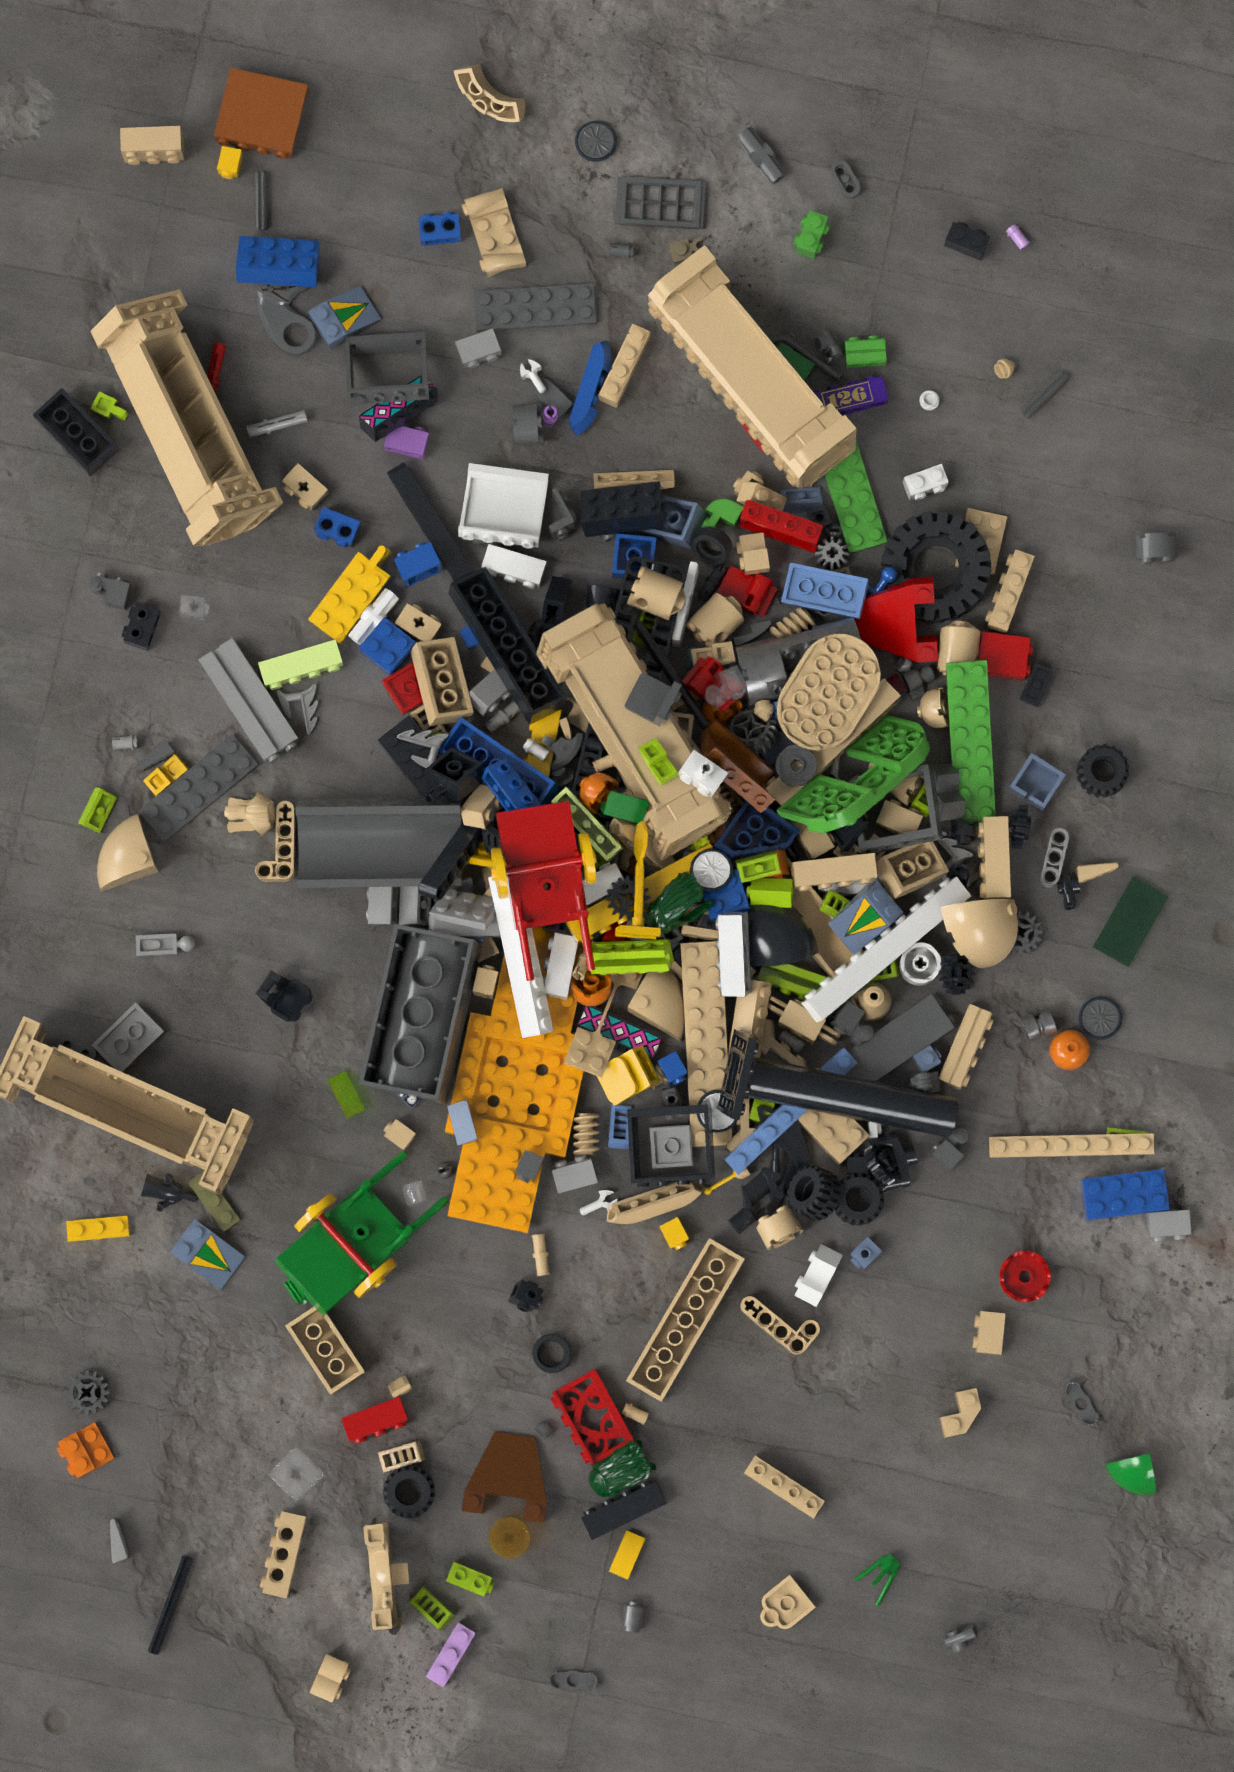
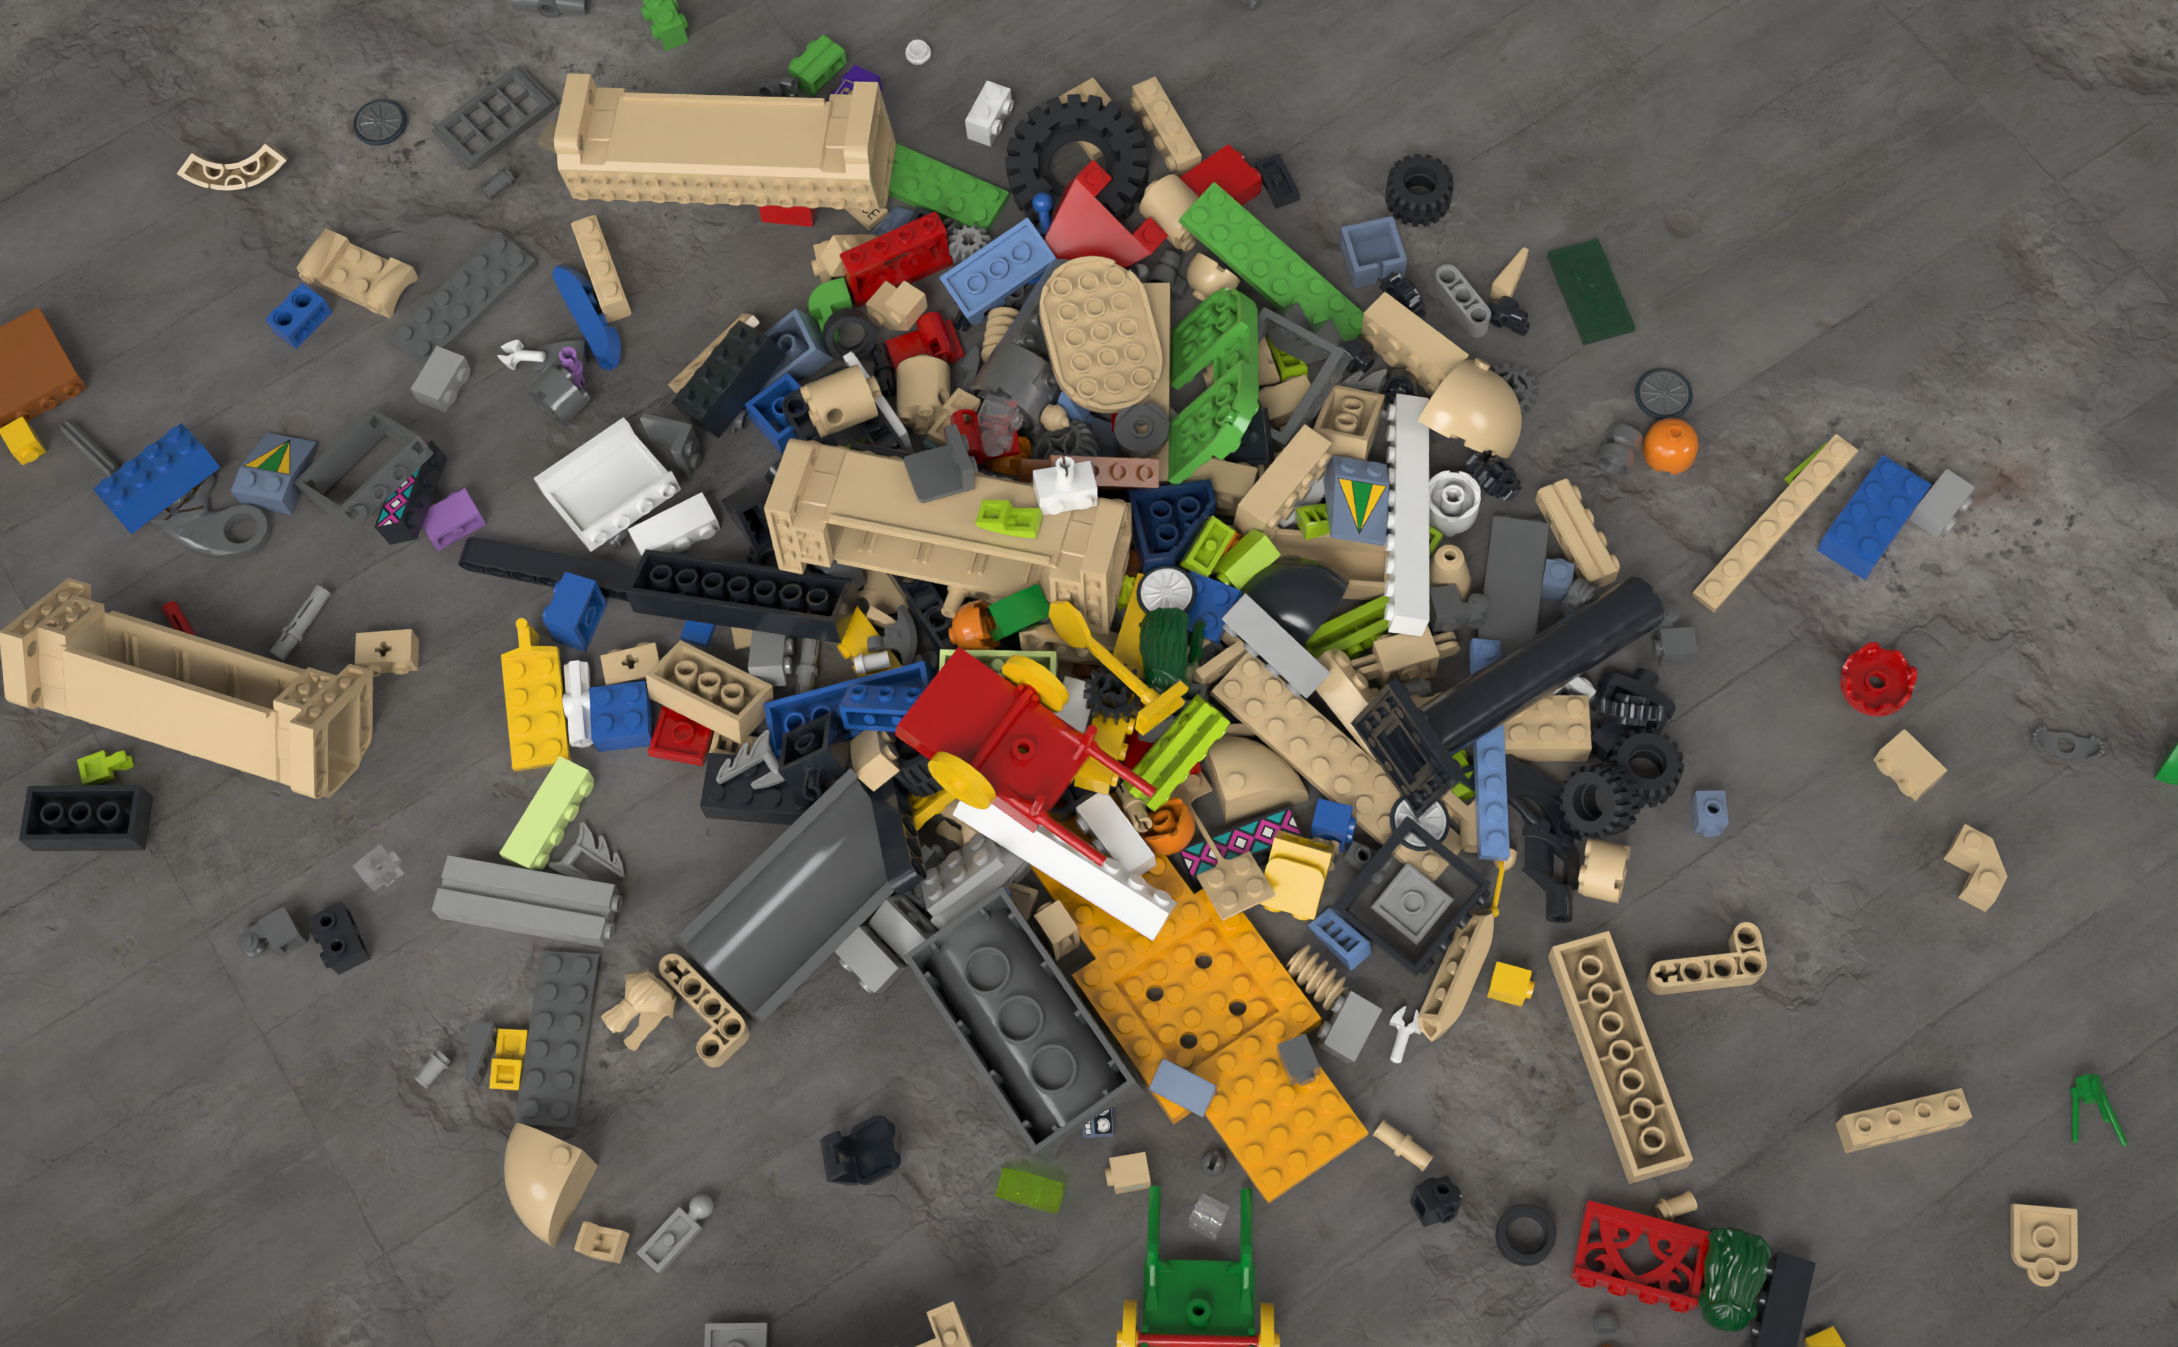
camera: 40 degrees left, 15 degrees down
(97, 810) = (468, 1167): lime slope -> none
(124, 913) = (601, 1242): none -> tan bracket
(339, 523) = (455, 651): blue brick -> none
(818, 1275) = (1691, 878): white brick -> none

